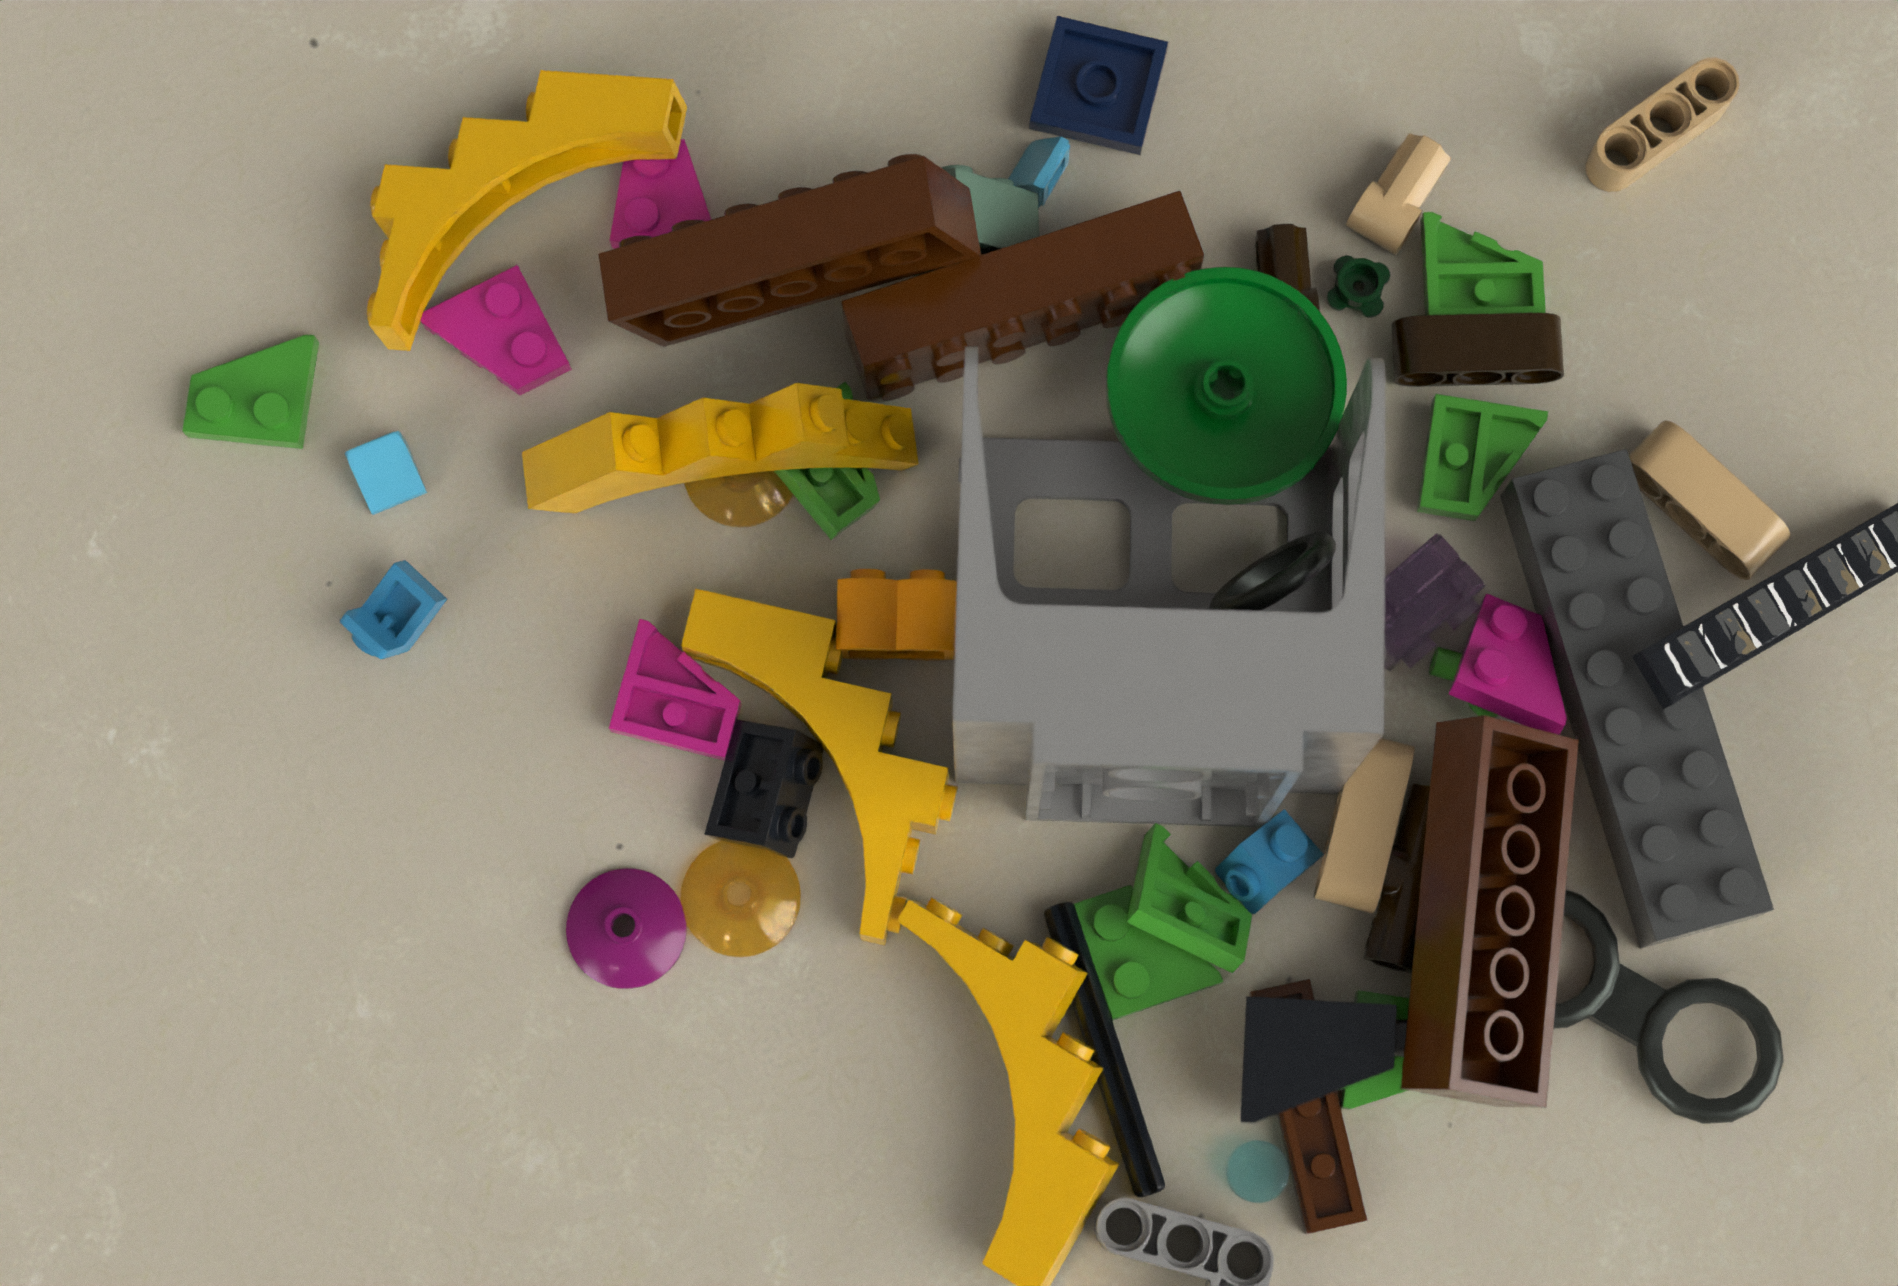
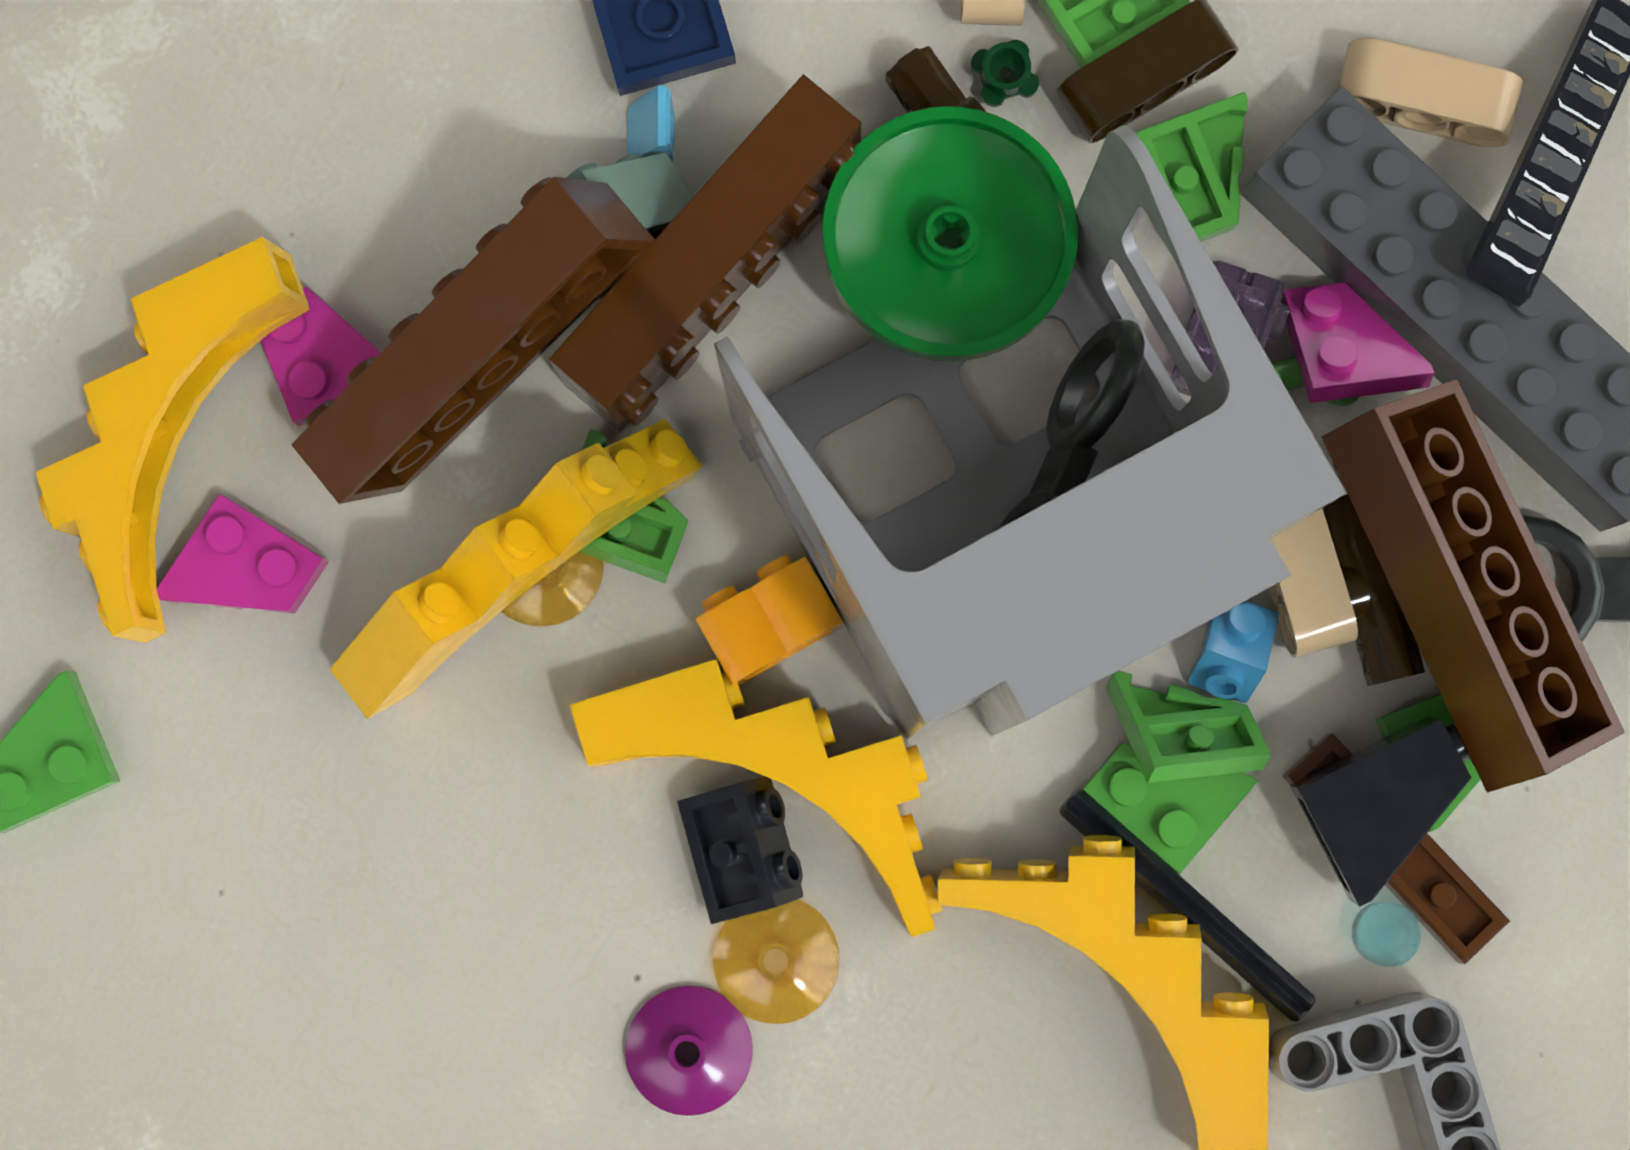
camera: 30 degrees left, 5 degrees up
(385, 472) = (212, 759): medium azure slope -> none
(394, 612) = (299, 889): dark azure bracket -> none
(672, 699) = (606, 815): dark pink wing -> none

